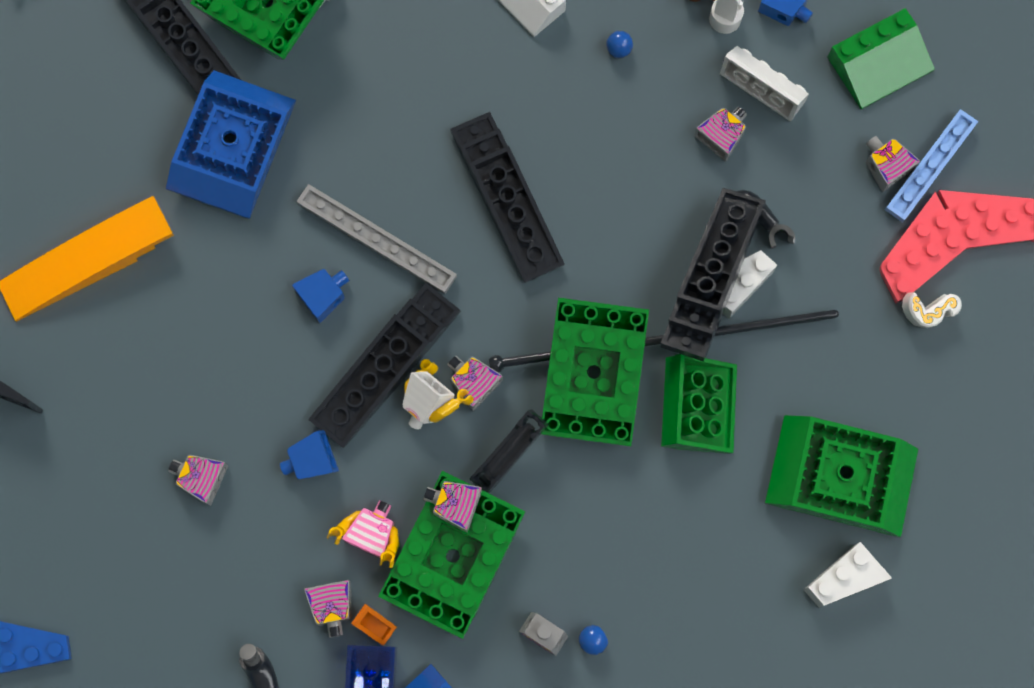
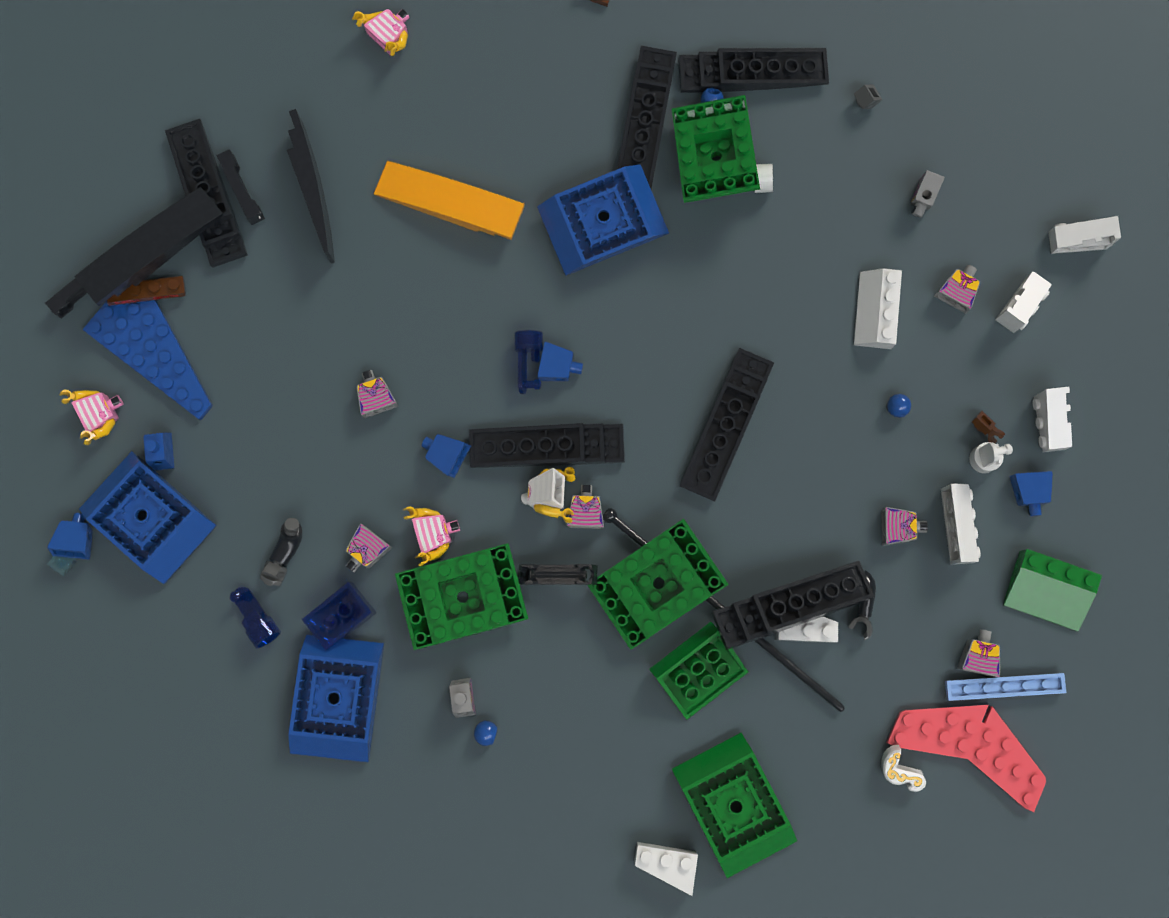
camera: 50 degrees right, 5 degrees up
(279, 300) = (528, 342): none -> clear blue piece
(374, 625) = (377, 586): orange slope -> none
(377, 239) = (623, 367): light grey plate -> none
(454, 503) = (492, 570): torso -> none

